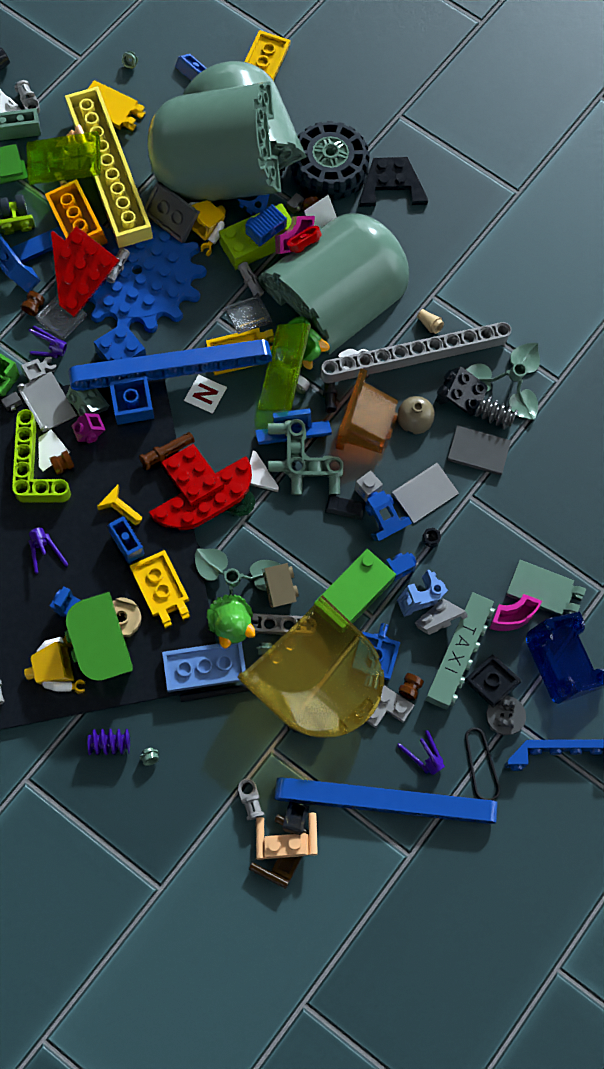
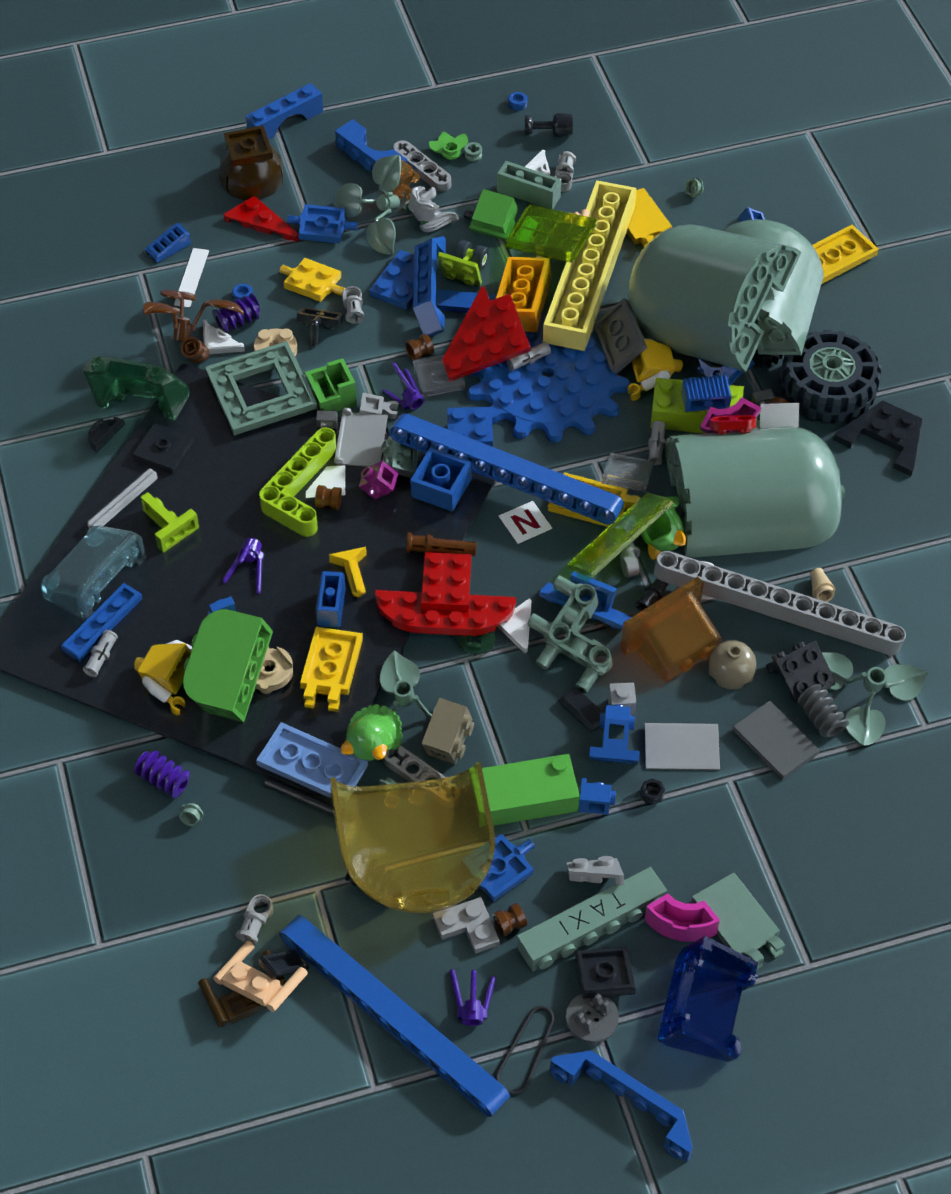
camera: 40 degrees right, 15 degrees down
(414, 600) = (595, 843): medium blue tile -> none

